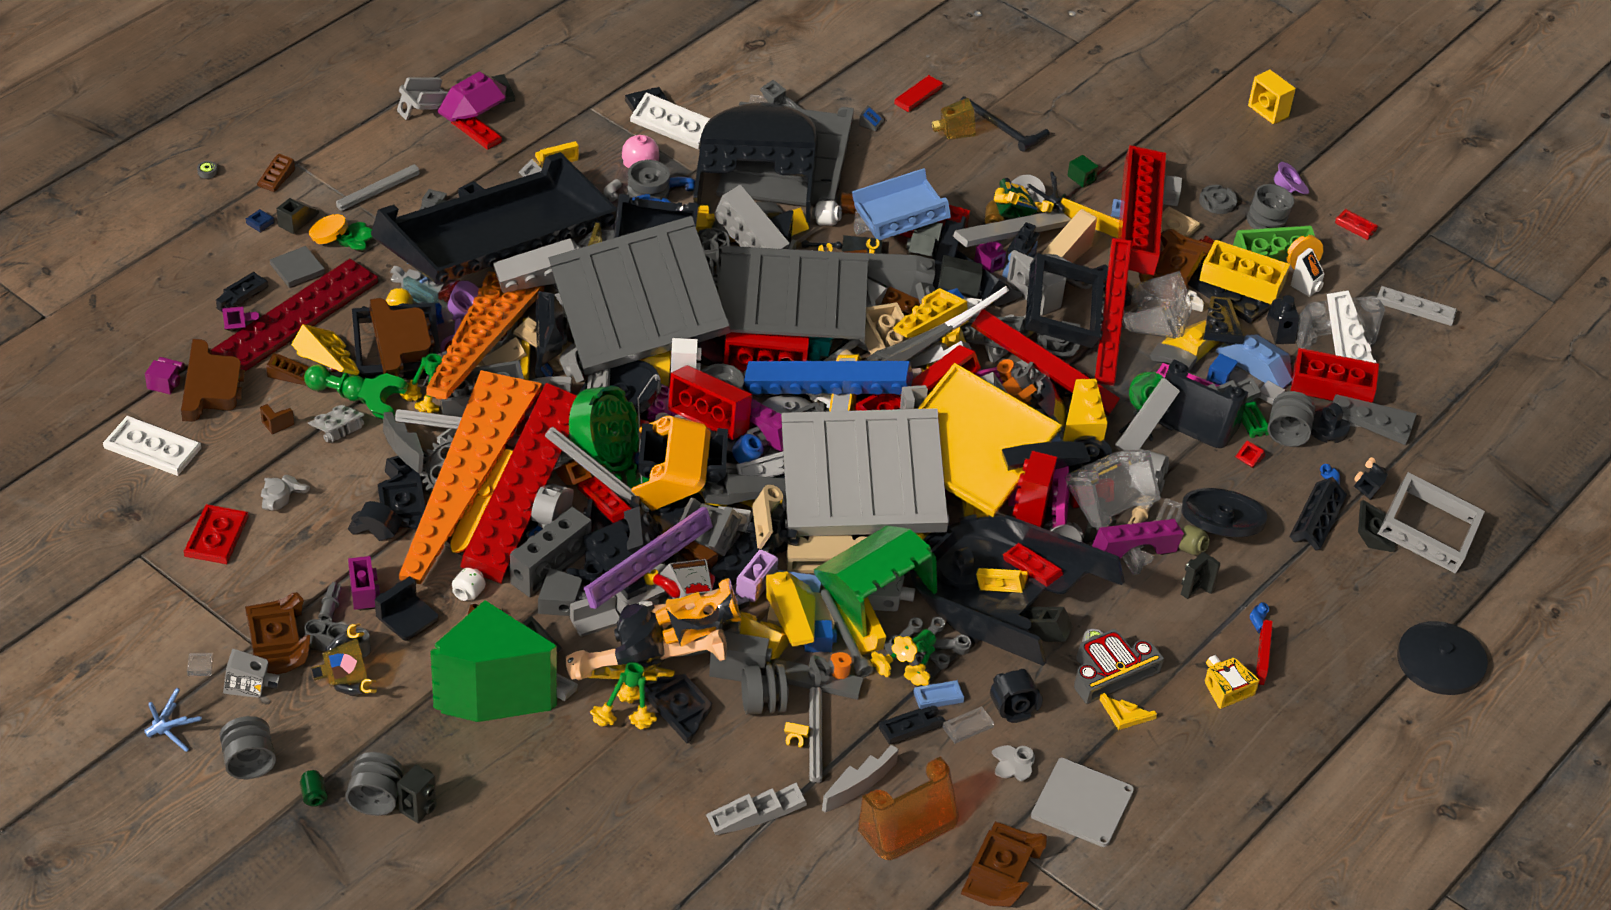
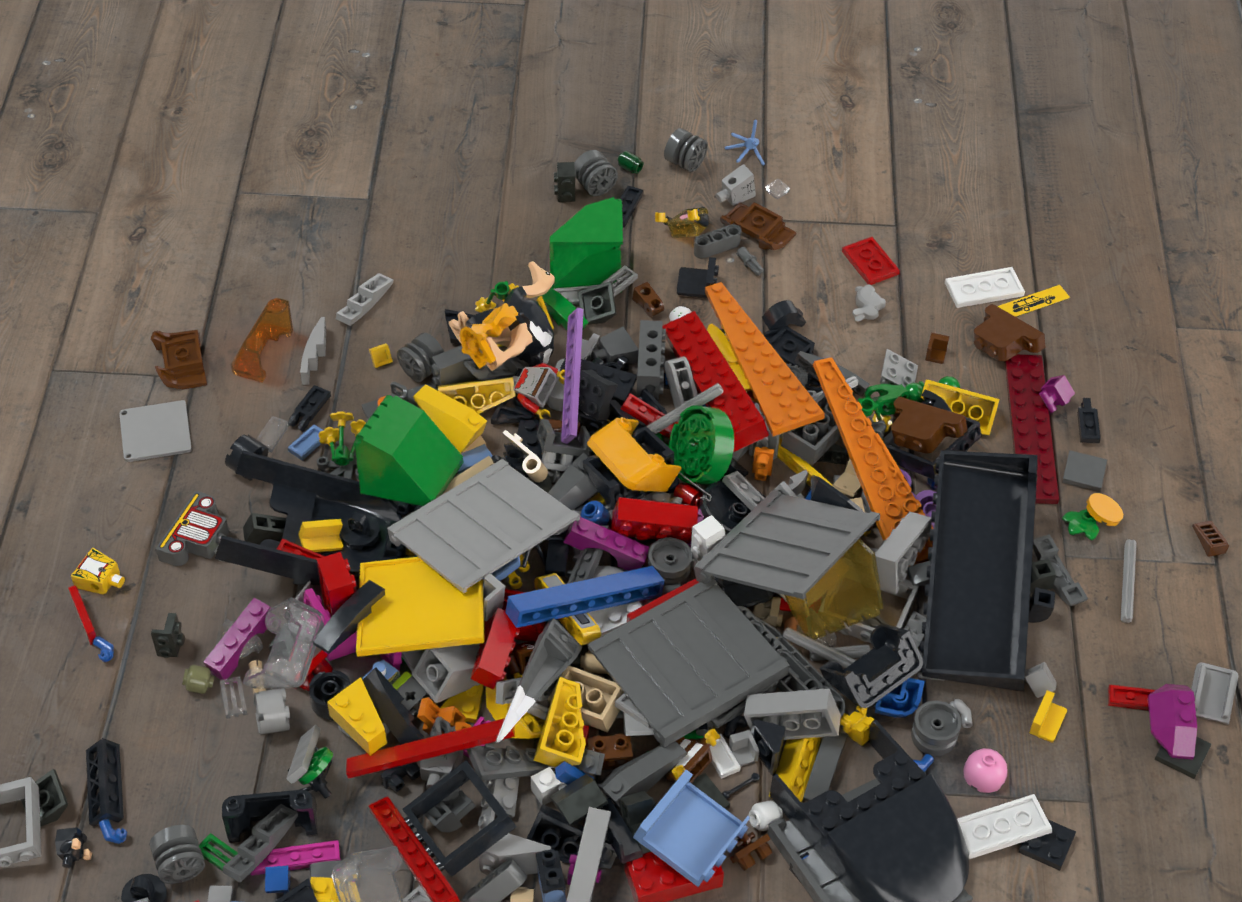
camera: 145 degrees right, 5 degrees up
(124, 408) = (1035, 301): none -> yellow sticker
(163, 375) = (1045, 323): magenta brick -> none
(259, 220) = (1163, 491): dark blue tile -> none
(278, 363) = (986, 380): reddish brown slope -> none
(294, 215) = (1141, 503): pearl dark grey slope -> none
(362, 341) = (934, 400): none -> black slope
(362, 582) = (742, 274): magenta brick -> none
(382, 742) = (630, 200): none -> black tile
(572, 641) = (560, 308): none -> green slope
(753, 577) = (497, 425): lavender brick -> none
(815, 735) = (366, 363): light grey axle -> none
(1012, 762) = (220, 426): light grey plate -> none
(1125, 713) = (162, 509): yellow tile -> none
(1224, 512) = (184, 715): black dish -> none
(1250, 454) = (199, 813): red slope -> none

